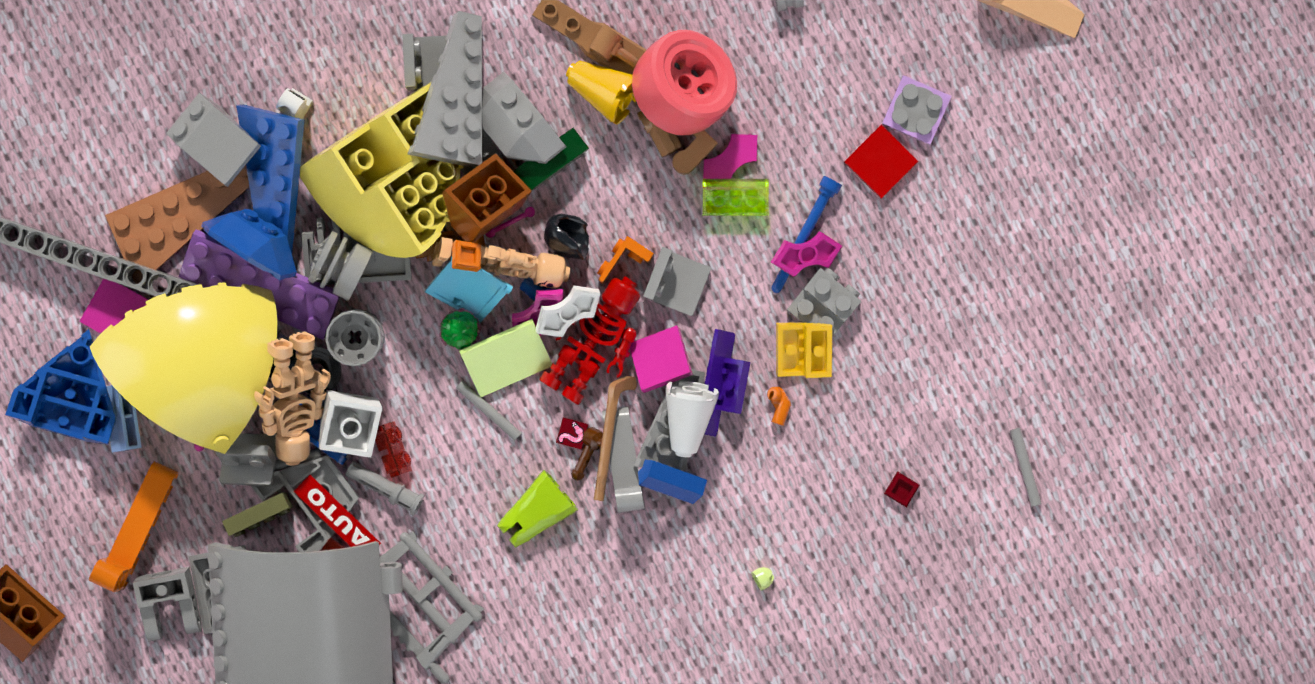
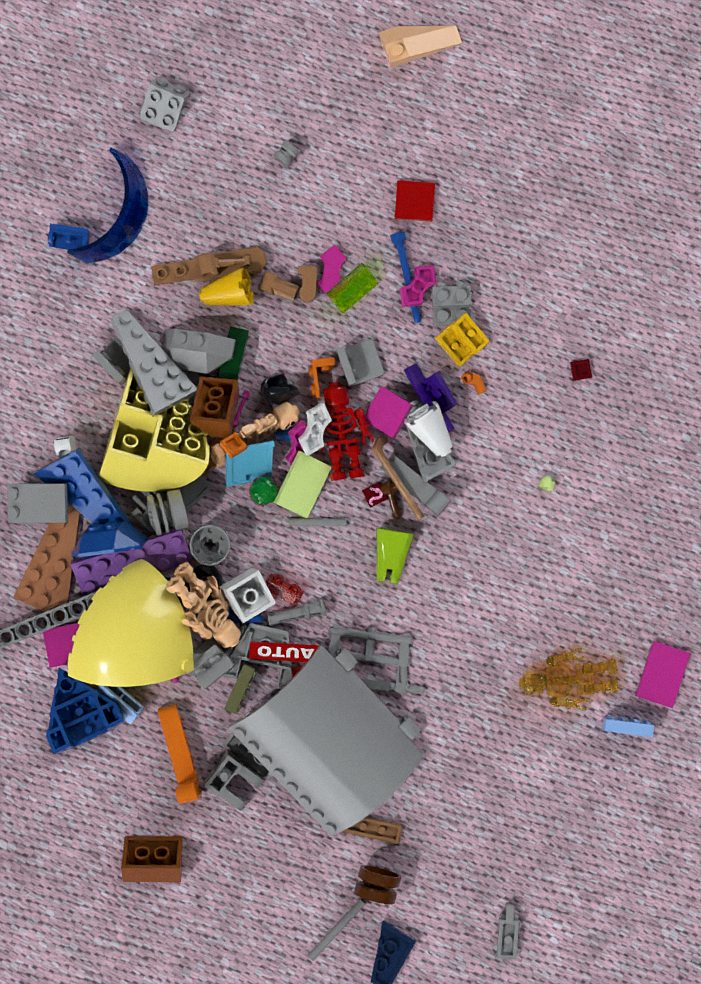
camera: 40 degrees left, 0 degrees up
(671, 95) = (268, 261): coral wheel -> none
(671, 481) = (452, 473): blue piece -> none
(916, 110) = (409, 156): light grey piece -> none
(1025, 467) = (637, 299): light grey piece -> none

